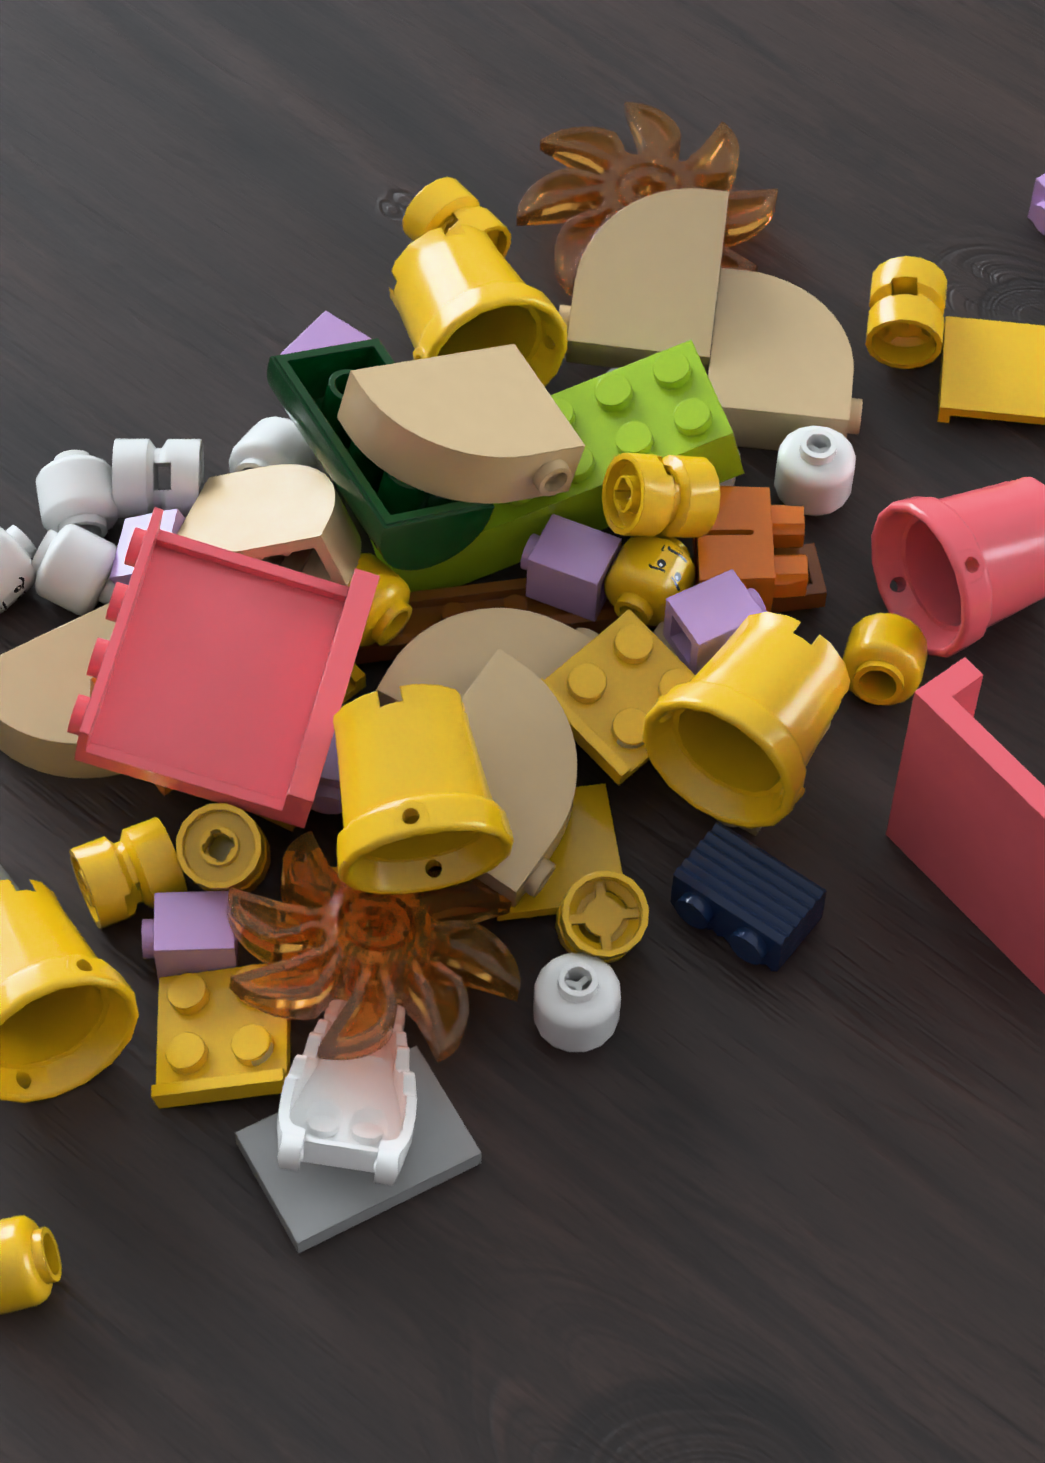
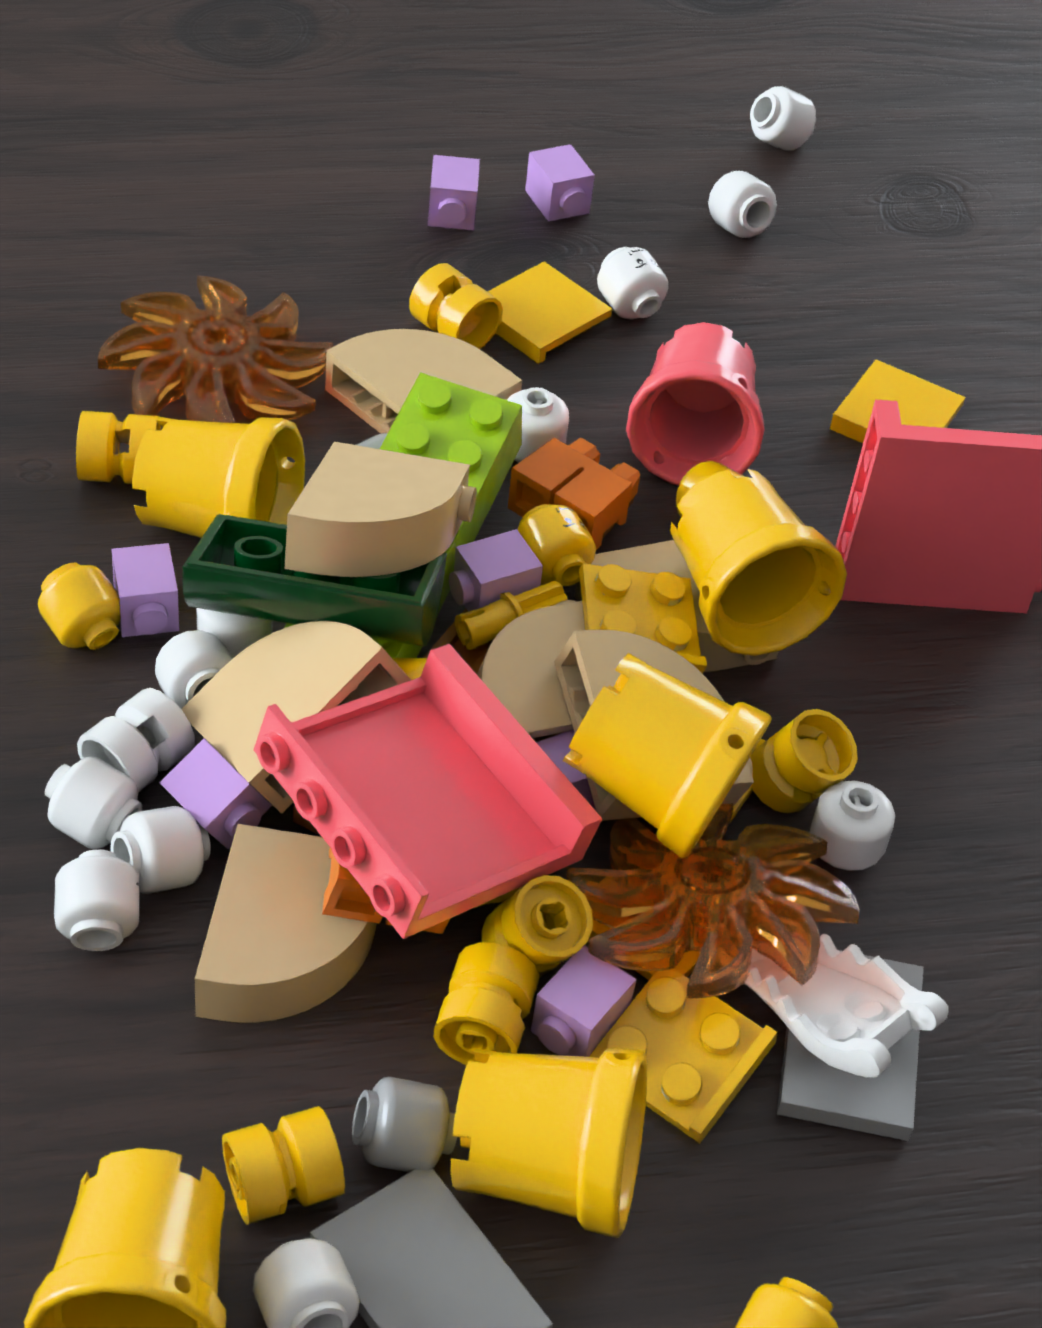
camera: 55 degrees left, 10 degrees down
(258, 332) = (80, 606): none -> yellow head
(516, 594) = (484, 623): none -> yellow axle
(649, 280) = (310, 375): tan brick -> none
(660, 495) = (525, 475): yellow wheel -> none
(706, 616) = (636, 531): lavender brick -> none
(746, 897) = (848, 680): dark blue brick -> none

